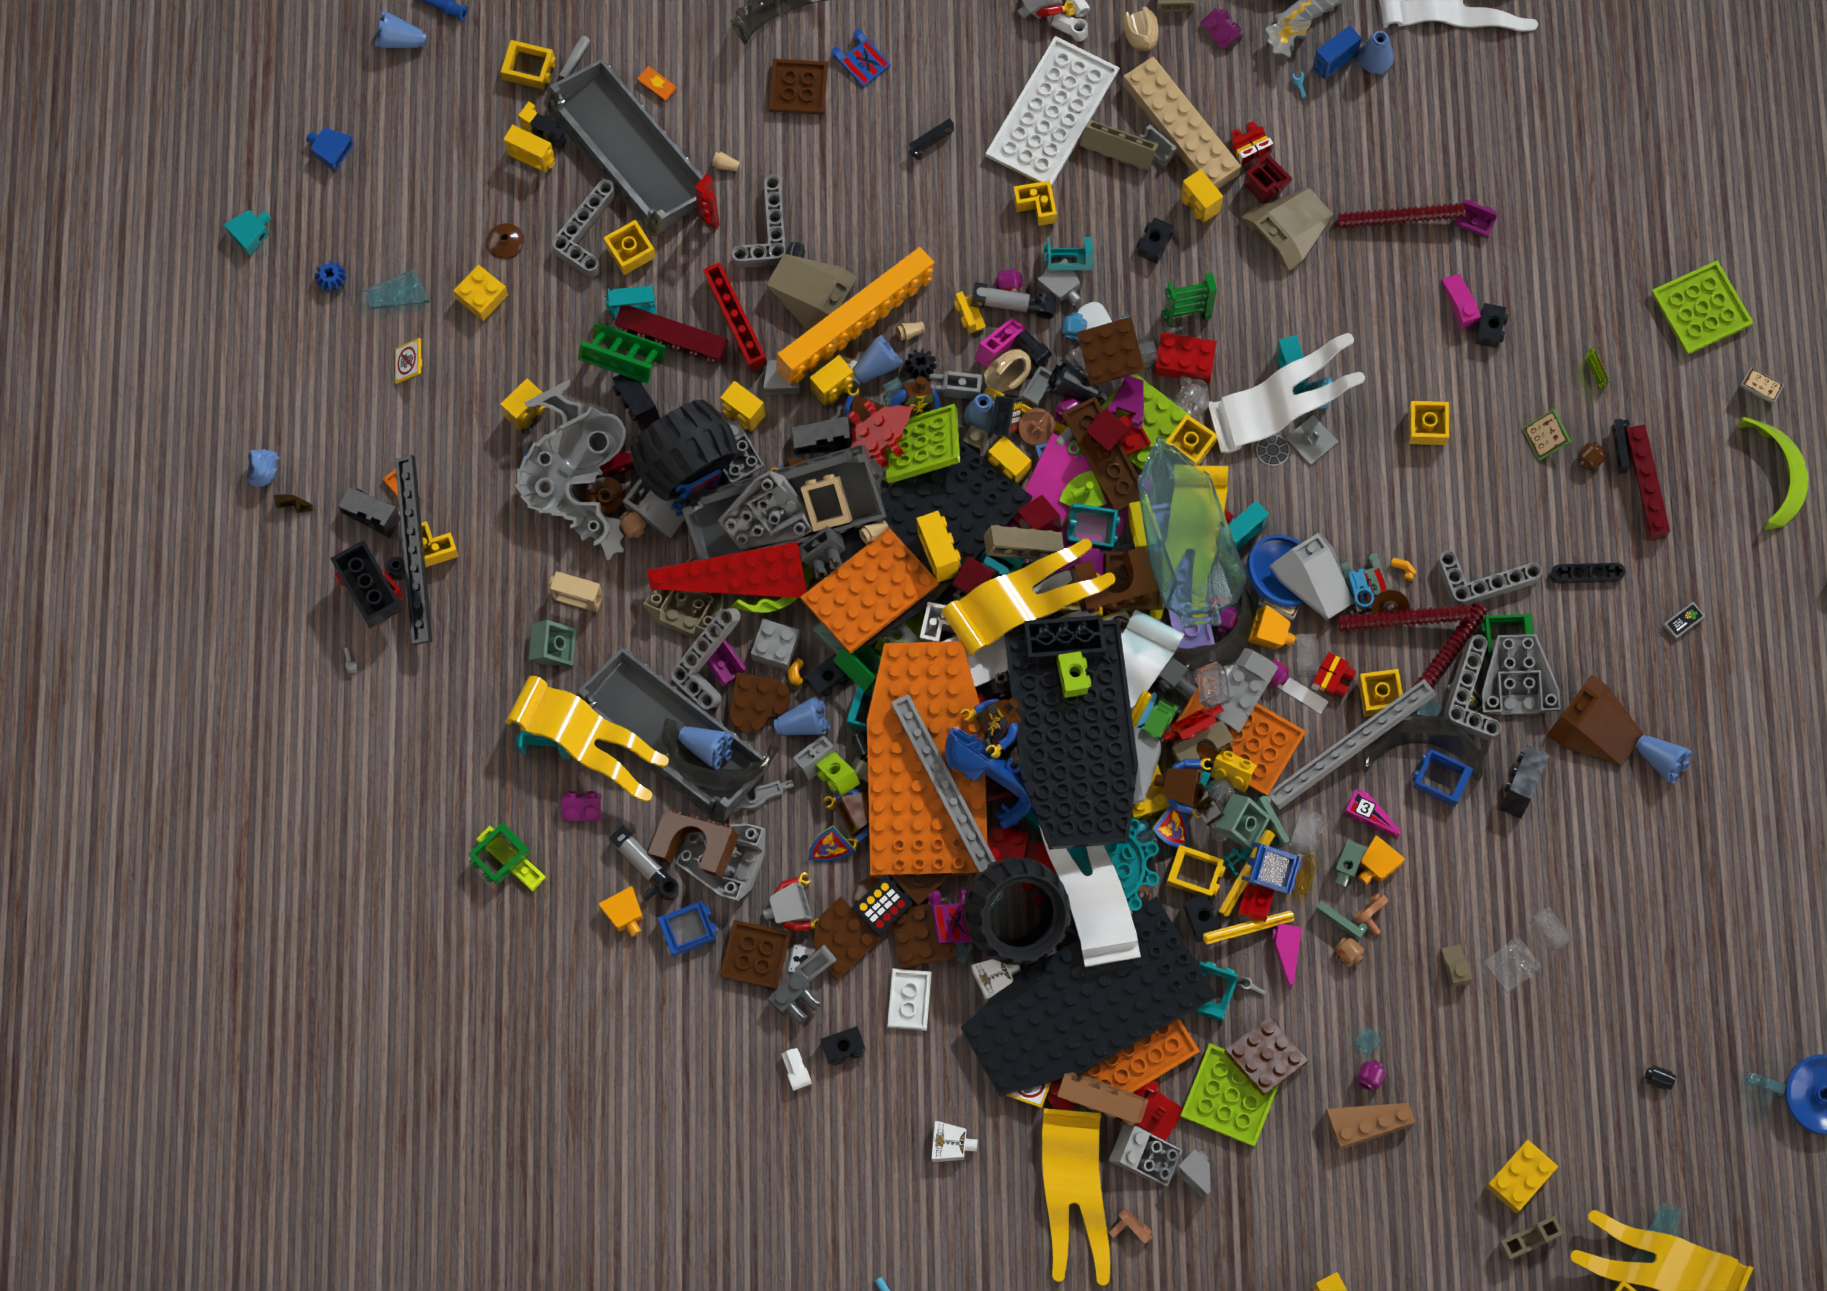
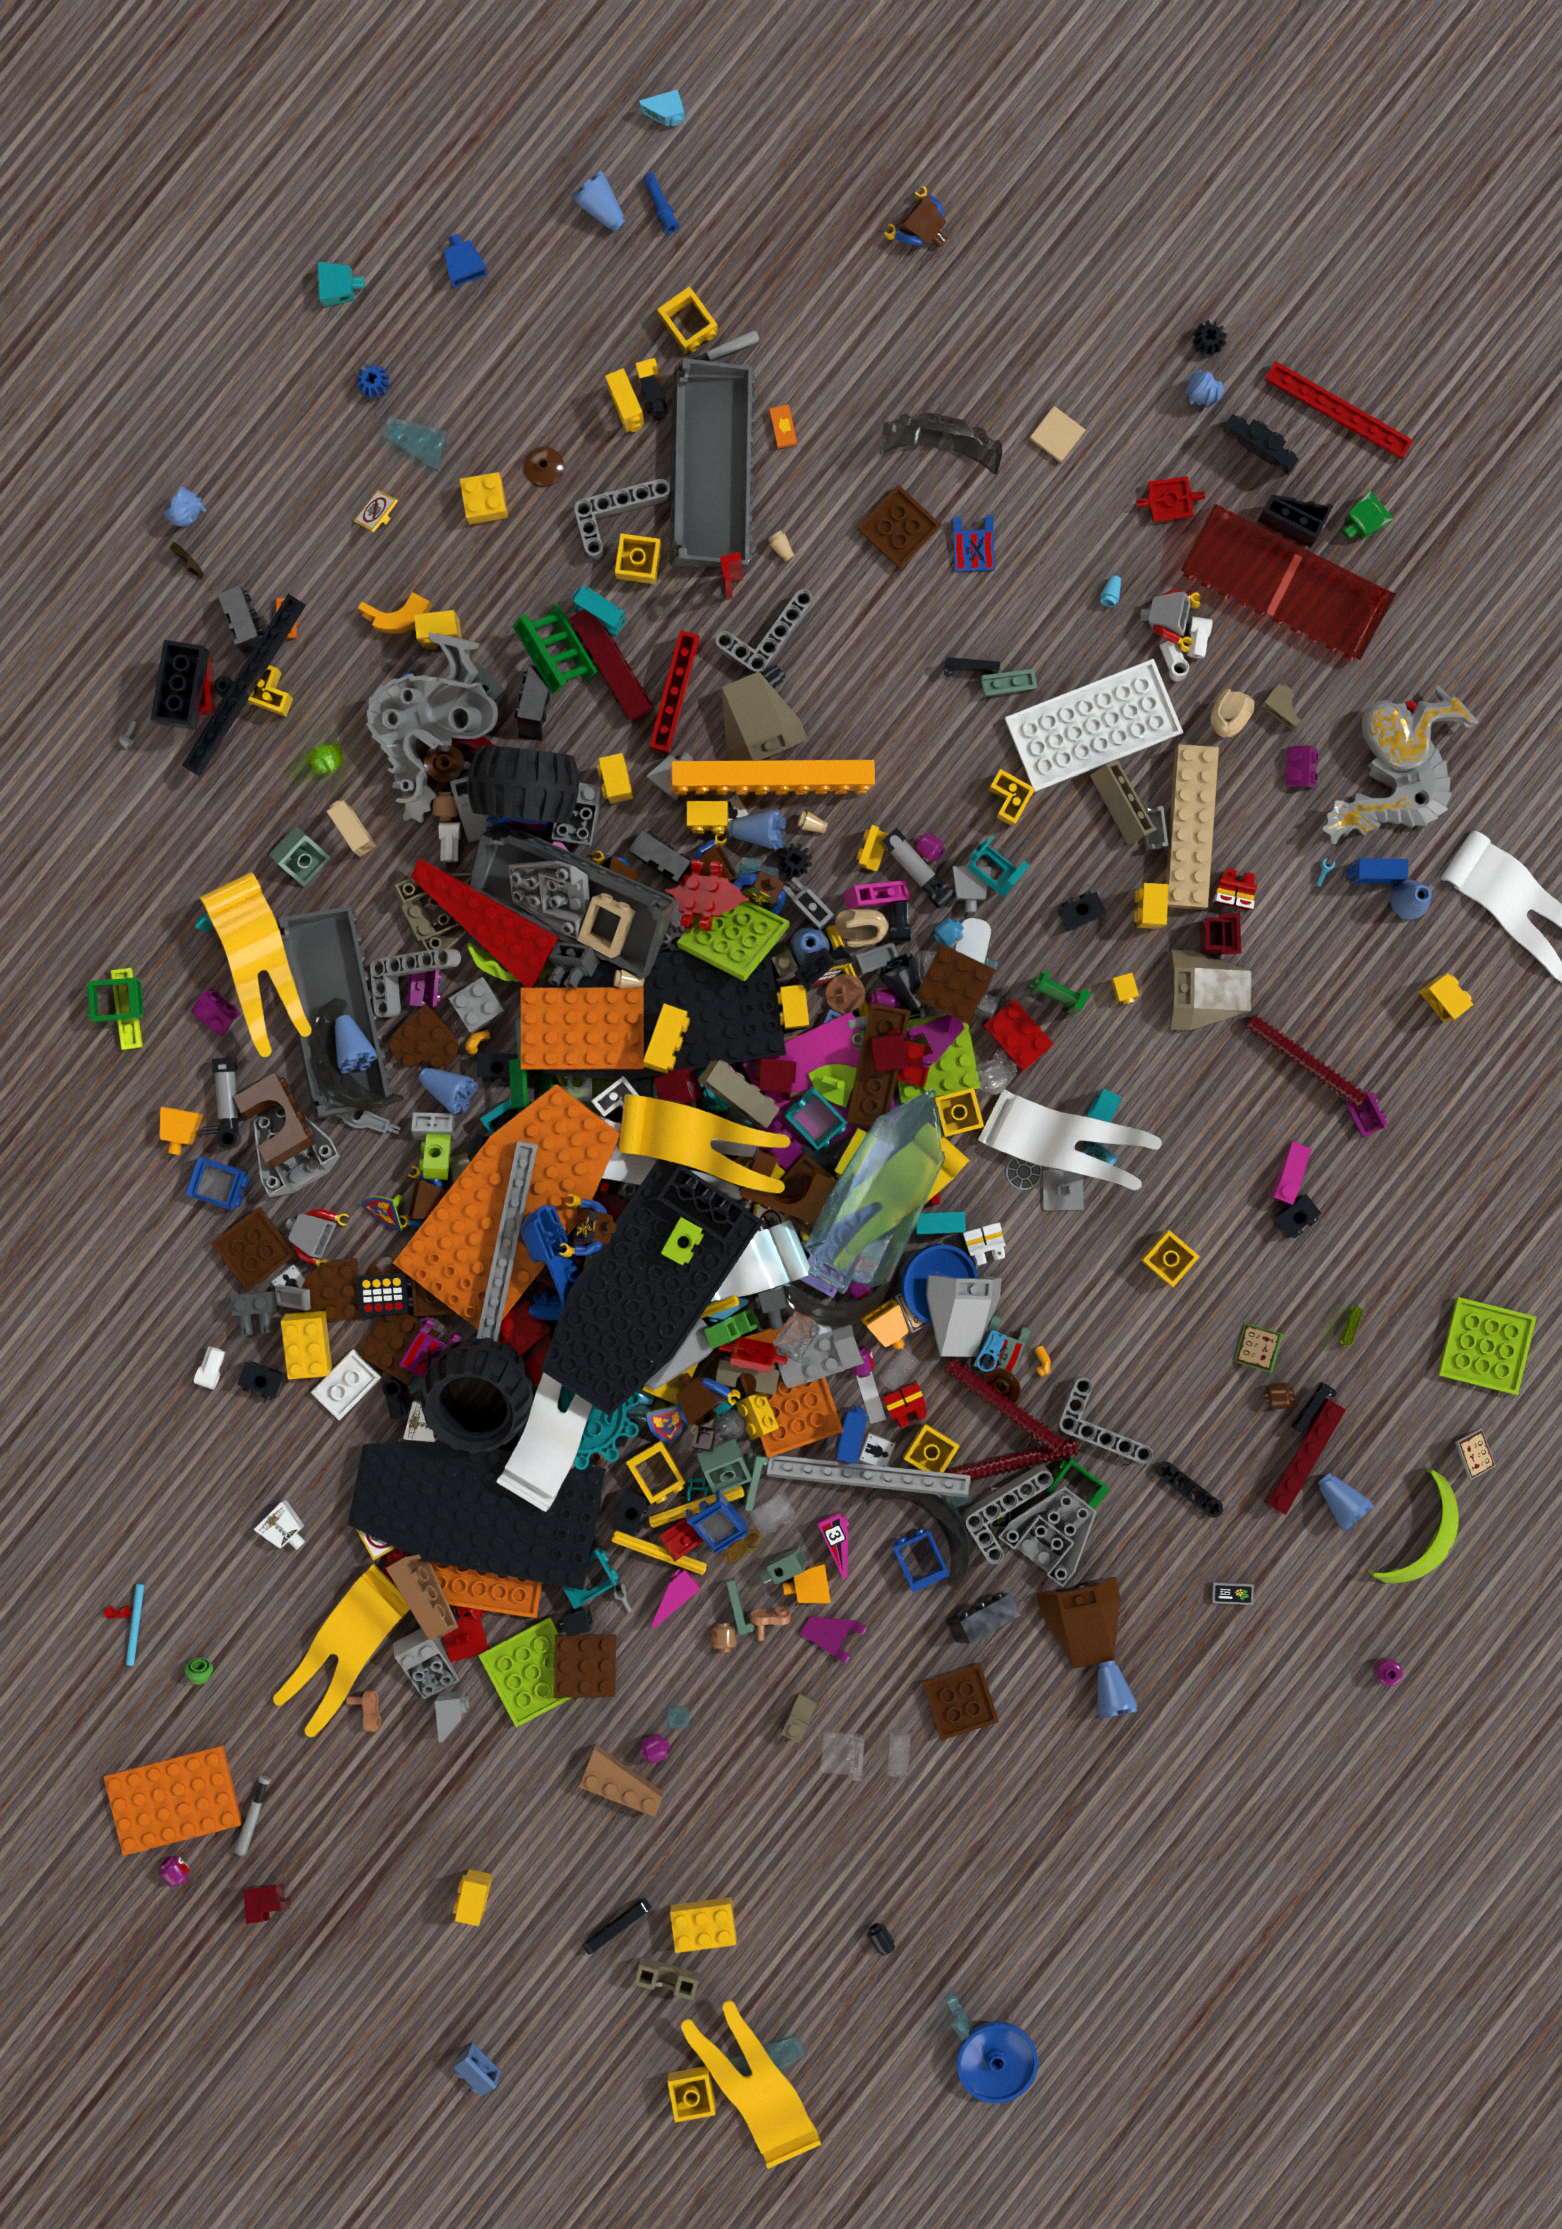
camera: 40 degrees right, 15 degrees up
(486, 426) = (398, 621): none -> light orange arch
(514, 558) = (325, 758): none -> clear neon green cone
(653, 543) = (449, 835): none -> white piece
(856, 989) = (306, 1345): none -> yellow brick
(957, 978) = (395, 1400): none -> black piece
(967, 129) = (1008, 682): none -> sand green hinge
(986, 16) = (1111, 592): none -> medium azure cone
(1231, 1025) = (576, 1620): none -> black brick
(1232, 267) = (1124, 988): none -> yellow brick
(1286, 517) = (993, 1239): none -> white hips
(1311, 719) = (852, 1434): none -> blue window
(1340, 726) = (877, 1450): none -> sticker
(1425, 886) = (830, 1633): none -> magenta flag
(1459, 98) = (1446, 997): none -> yellow brick
(1459, 1233) = (616, 1926): none -> black beam
(1561, 856) = (960, 1701): none -> reddish brown plate
(1702, 490) = (1344, 1501): none -> medium blue cone

